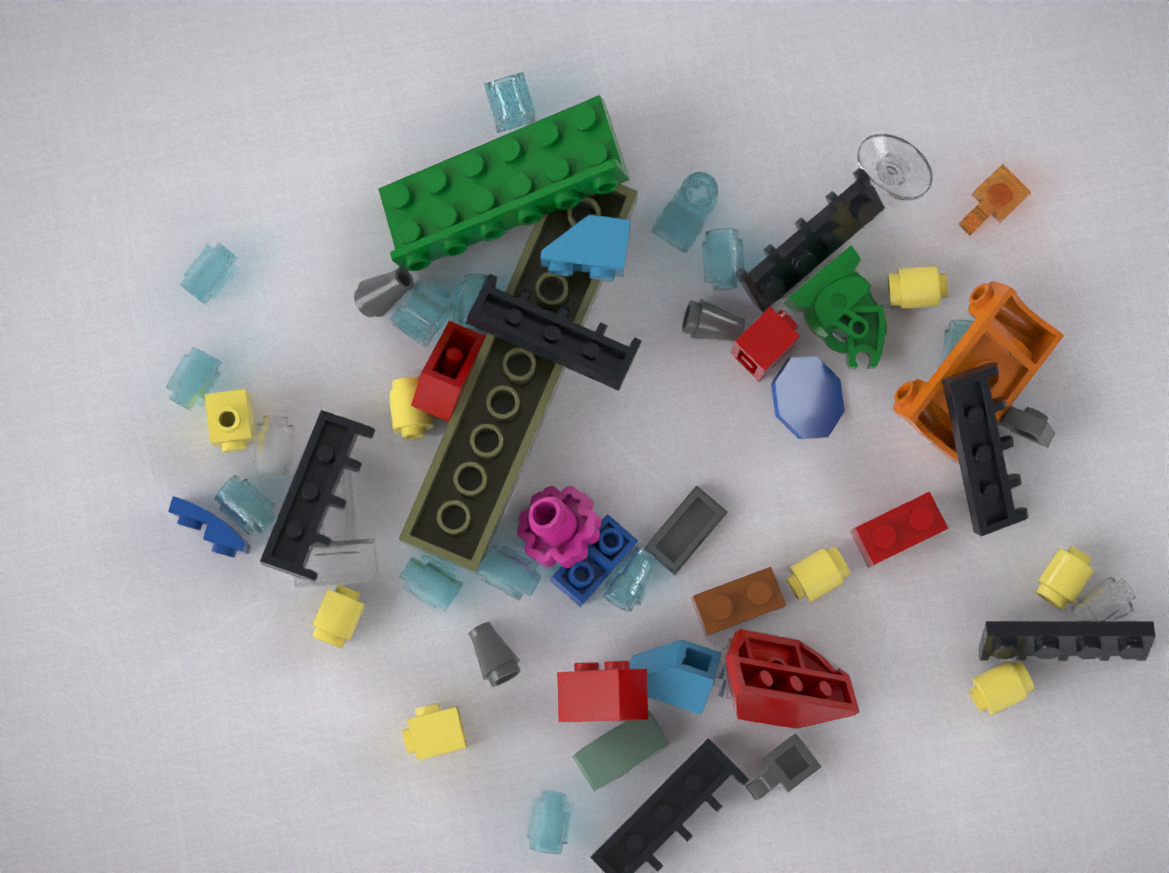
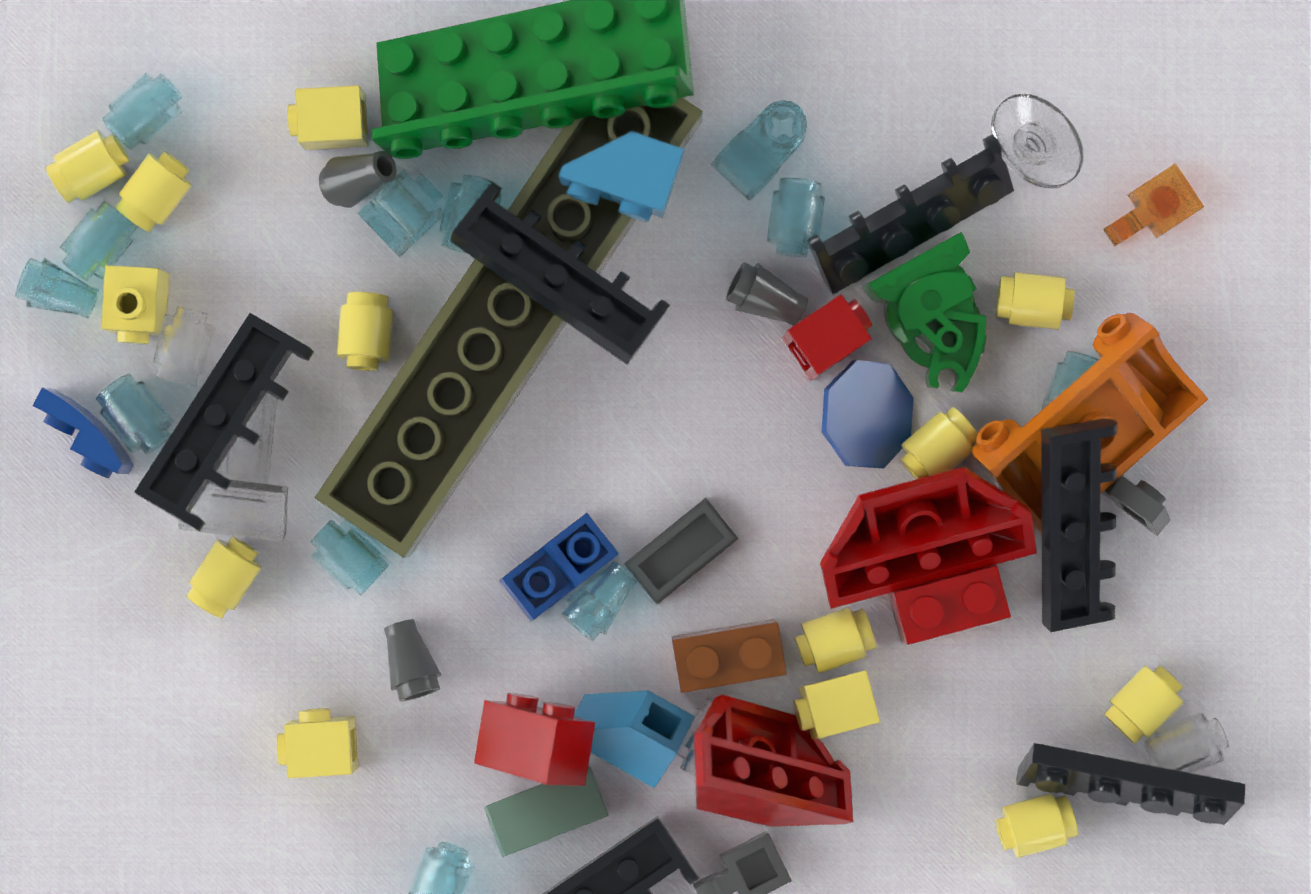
camera: 10 degrees right, 5 degrees up
(167, 422) = (54, 289): none -> clear light blue cone
(175, 323) = (88, 166): none -> light yellow brick
(229, 332) = (154, 191): none -> light yellow brick
(353, 251) = (329, 117): none -> light yellow brick
(447, 370) = (416, 294): red brick -> none
(510, 572) = (450, 562): clear light blue brick -> none
(559, 526) = (522, 518): dark pink plant -> none
(828, 623) = (836, 705): none -> light yellow brick
(867, 411) = (939, 444): none -> light yellow brick
(869, 478) = (924, 535): none -> red wedge

